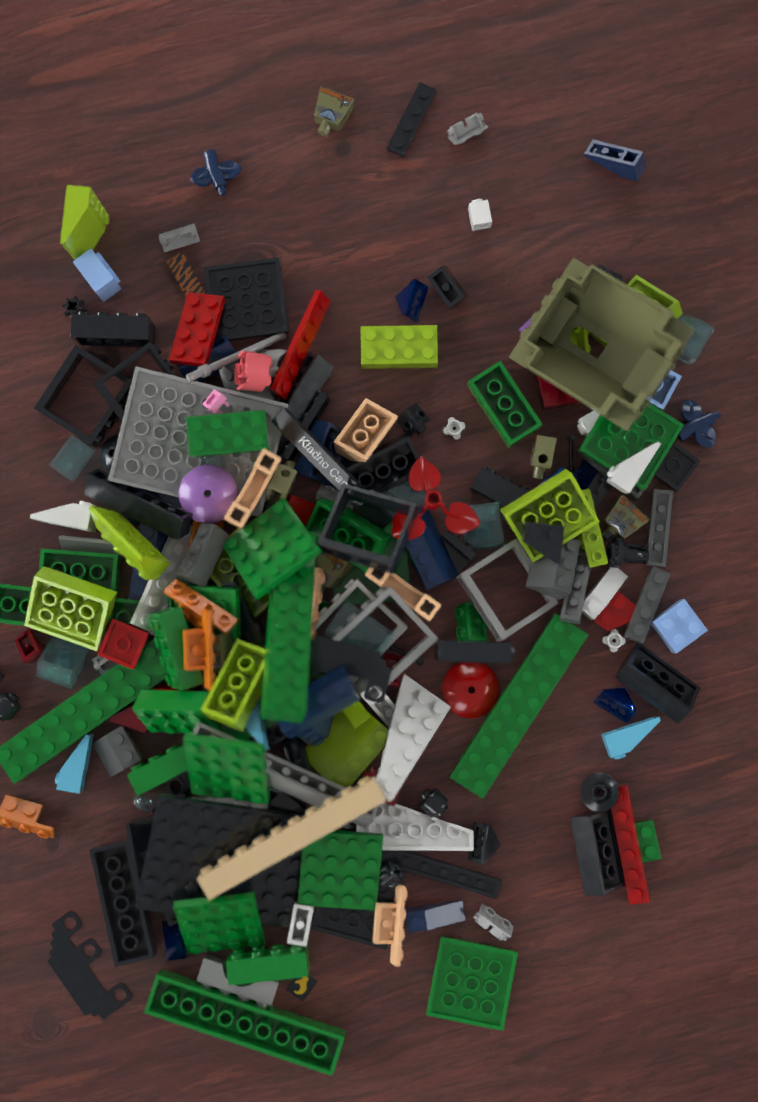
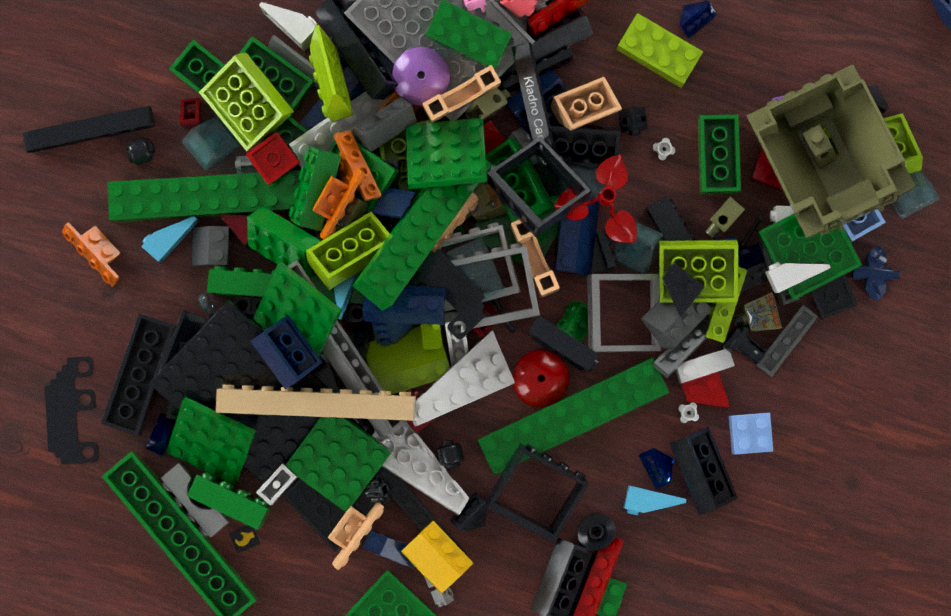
camera: 30 degrees right, 0 degrees up
(238, 808) = (286, 352): none -> dark blue slope
(253, 619) = (394, 203): none -> dark blue piece
(447, 286) = (733, 24): black brick -> none
(477, 901) = (437, 557): none -> yellow slope
(537, 821) = (549, 533): none -> black window
(586, 344) = (819, 144): none -> olive torso
(647, 605) = (735, 399): dark grey plate -> none

